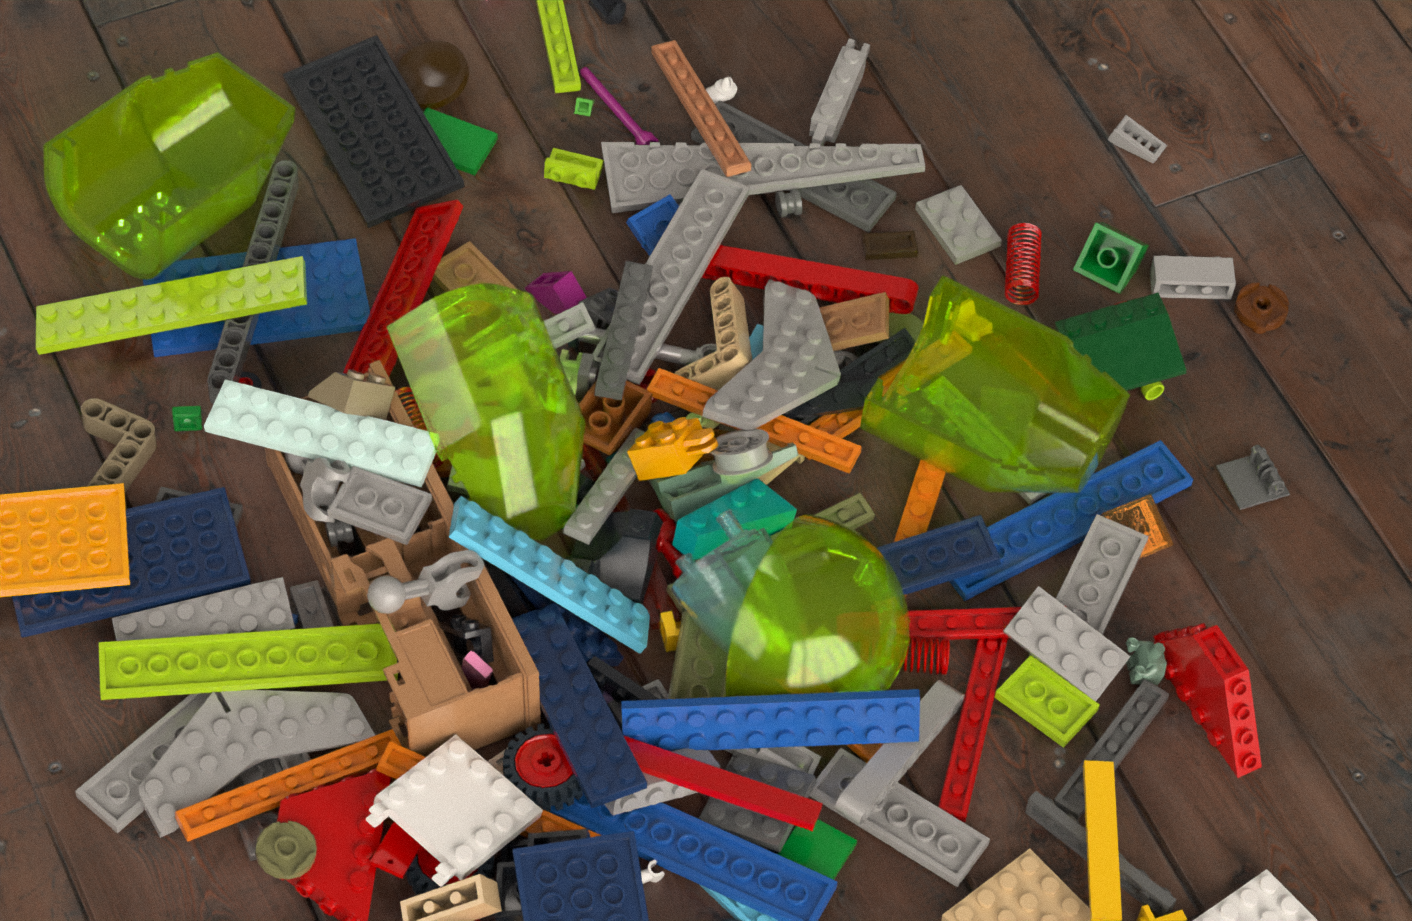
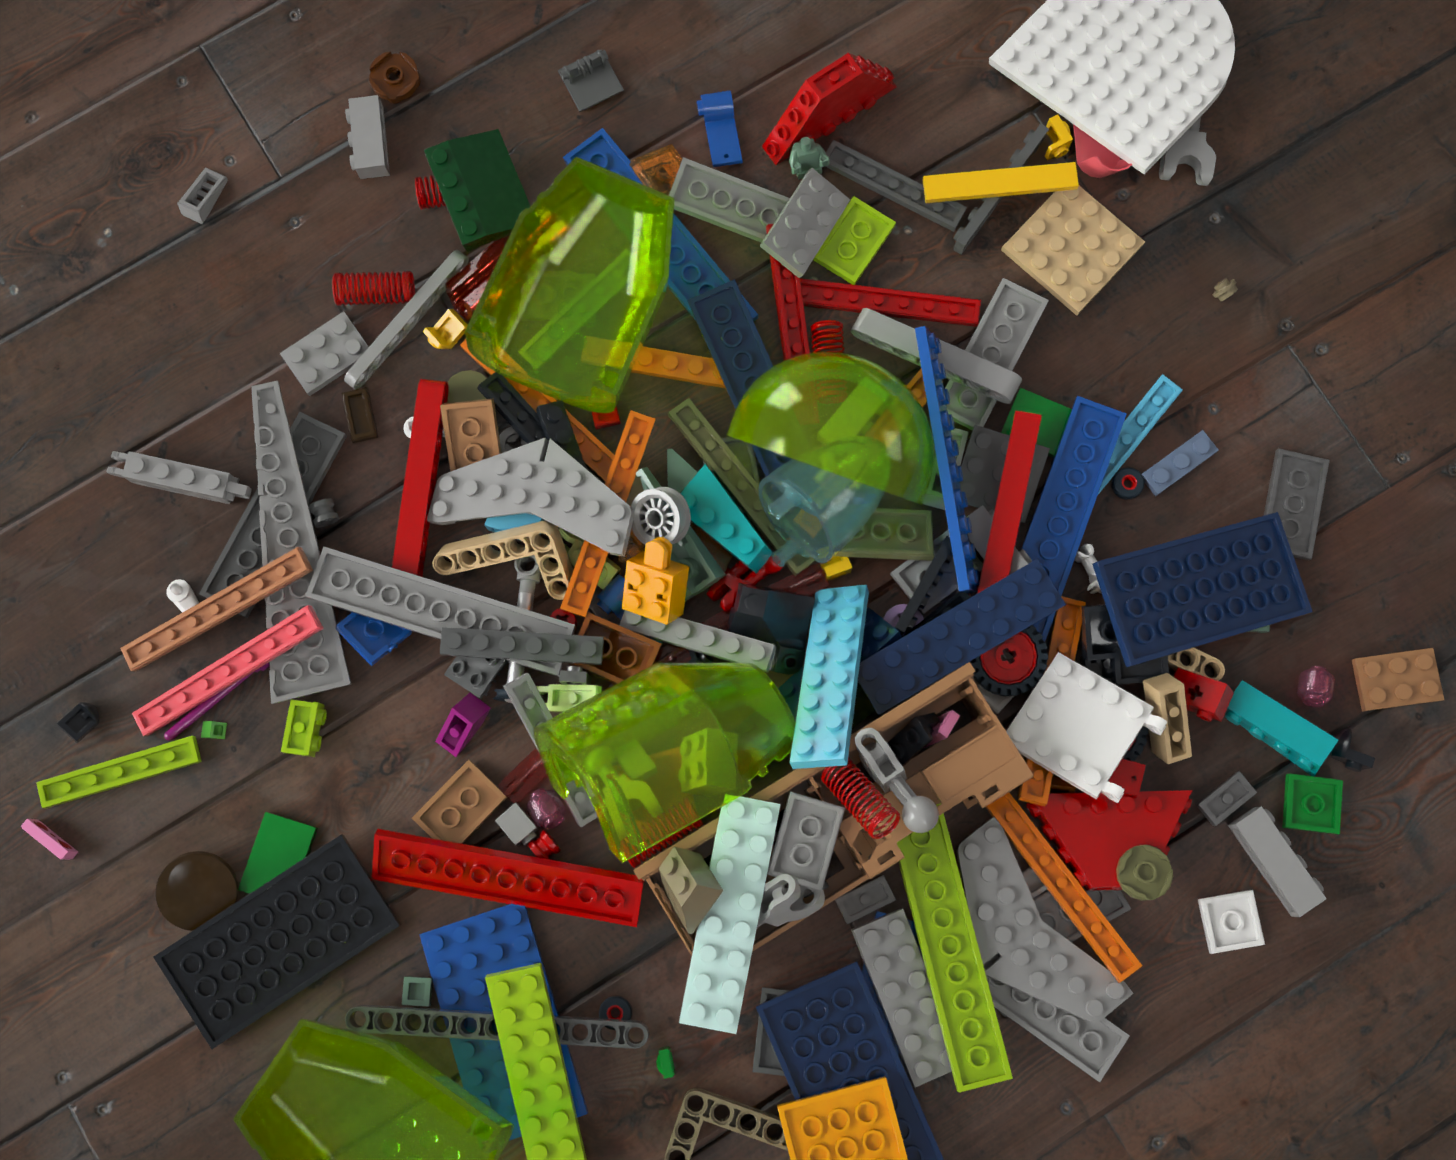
camera: 90 degrees left, 25 degrees up
(301, 231) = (417, 991): none -> sand green plate
(396, 557) = (879, 817): none -> red piece
(639, 113) = (227, 670): none -> coral tile
(801, 497) = (679, 471): none -> sand green slope
(871, 451) = (604, 420): none -> red tile
(970, 274) = (405, 321): none -> light grey beam
(1110, 257) = (353, 210): green slope -> none
(1208, 593) = (720, 128): none -> blue door

